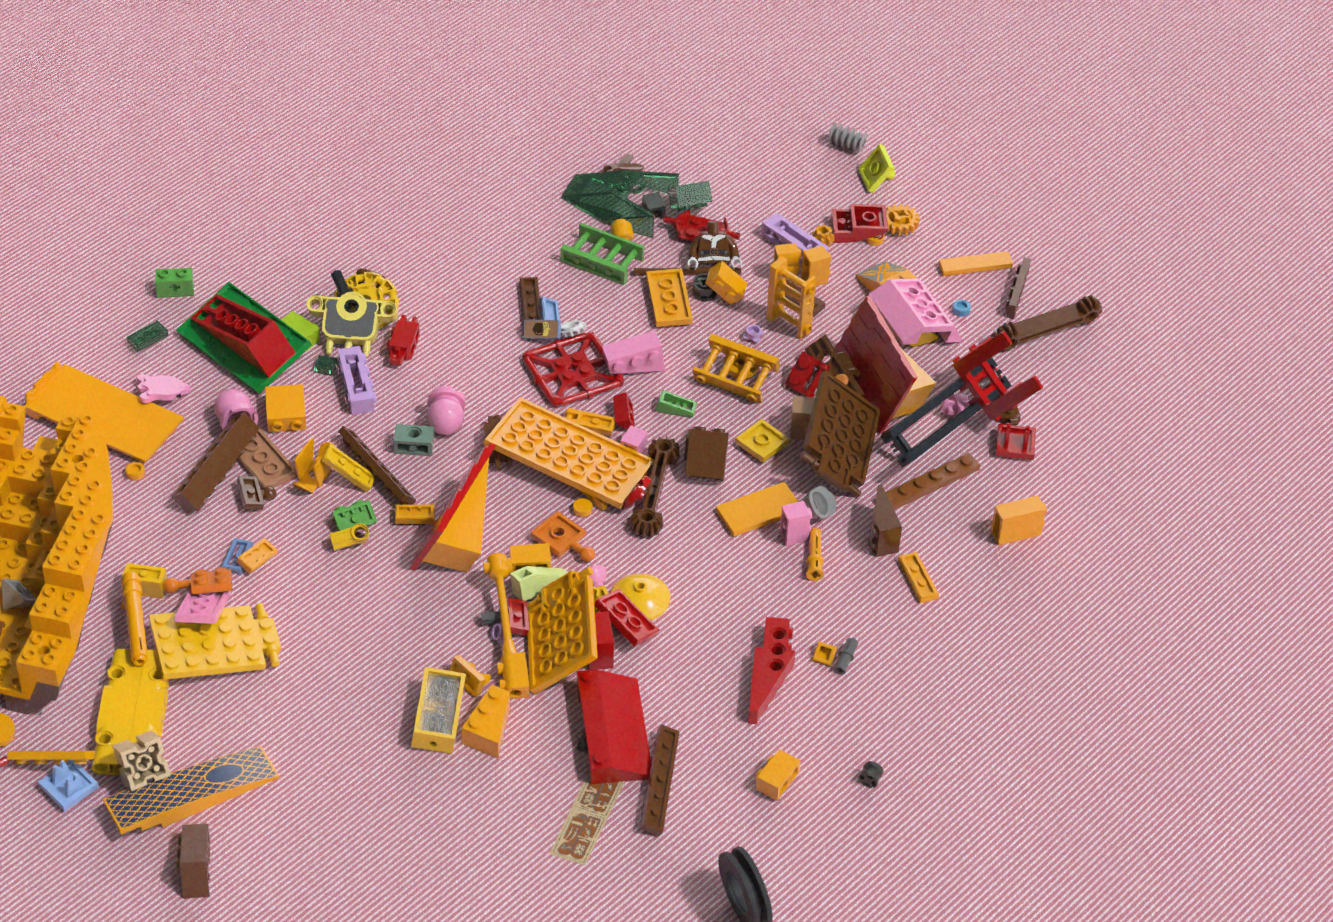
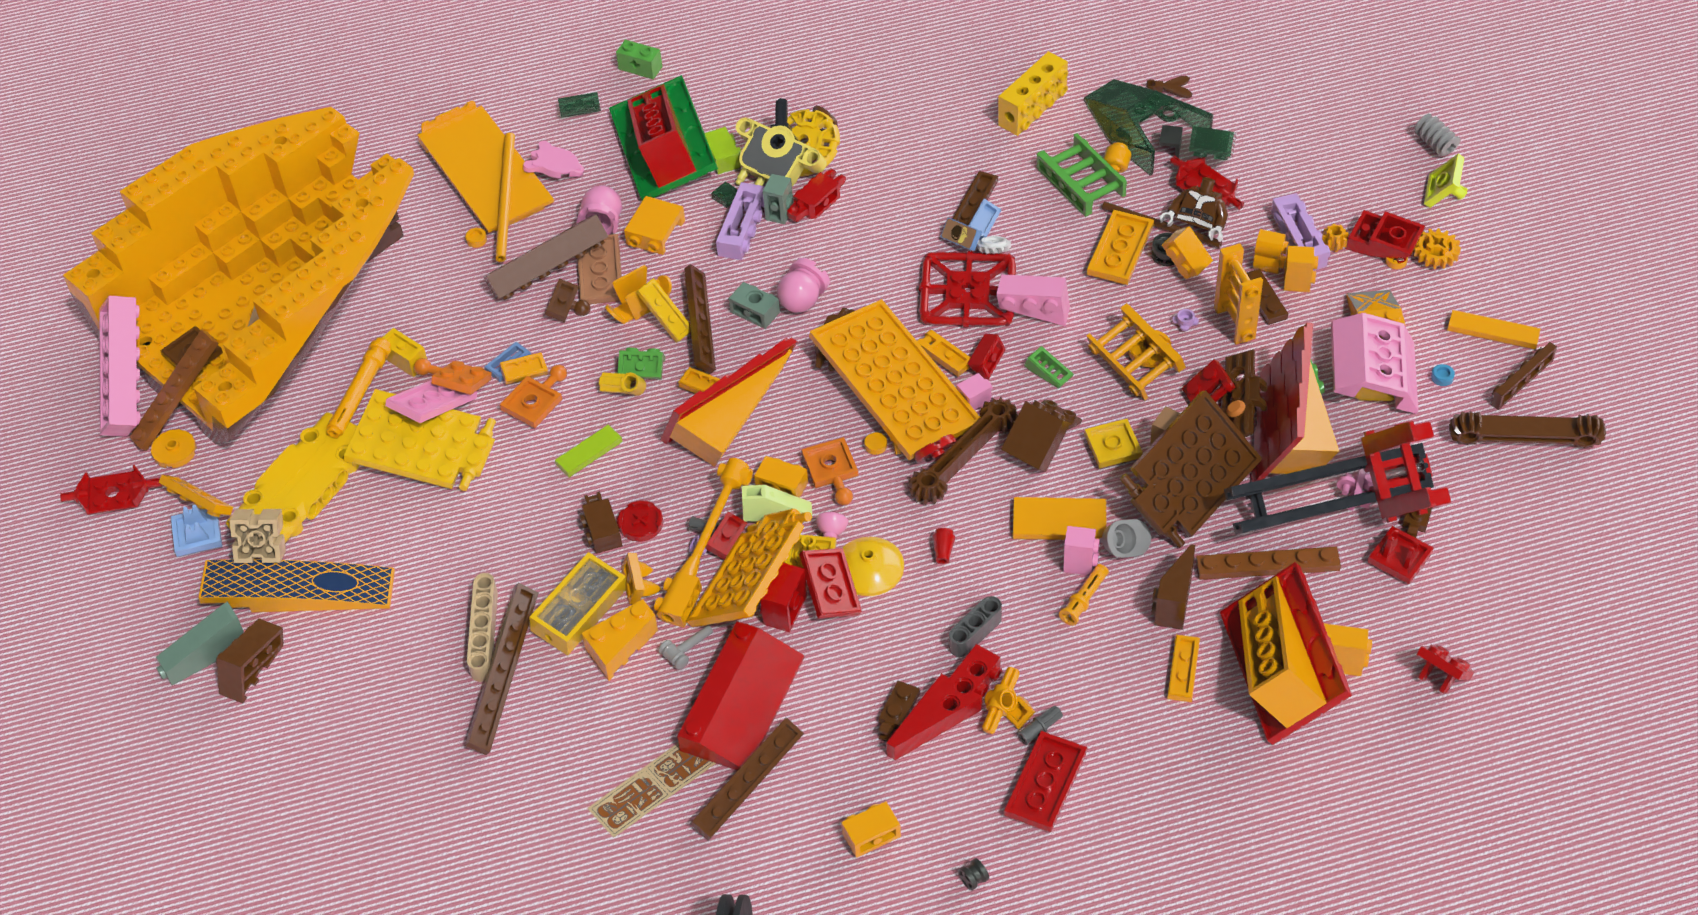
camera: 35 degrees right, 5 degrees up
(143, 429) = (505, 196): none -> light orange piece
(148, 864) = (199, 645): none -> sand green slope
(276, 569) = (531, 390): none -> orange plate
(357, 598) = (588, 450): none -> lime tile
(371, 758) = (486, 596): none -> tan beam
(378, 351) = (777, 198): none -> sand green brick
(410, 646) = (600, 523): none -> reddish brown brick
(411, 782) = (501, 669): none -> reddish brown plate
(438, 633) = (640, 521): none -> red tile
(526, 204) = (1032, 93): none -> yellow brick
(540, 716) = (677, 655): none -> light grey piece
(687, 559) = (943, 544): none -> red cone
(734, 687) = (897, 708): none -> reddish brown plate
(752, 607) = (972, 635): none -> dark grey beam
(808, 649) = (1000, 700): none -> light orange axle
(877, 691) = (1045, 781): none -> red plate
(989, 535) = (1285, 653): none -> piece
(1088, 498) = (1439, 657): none -> red plate

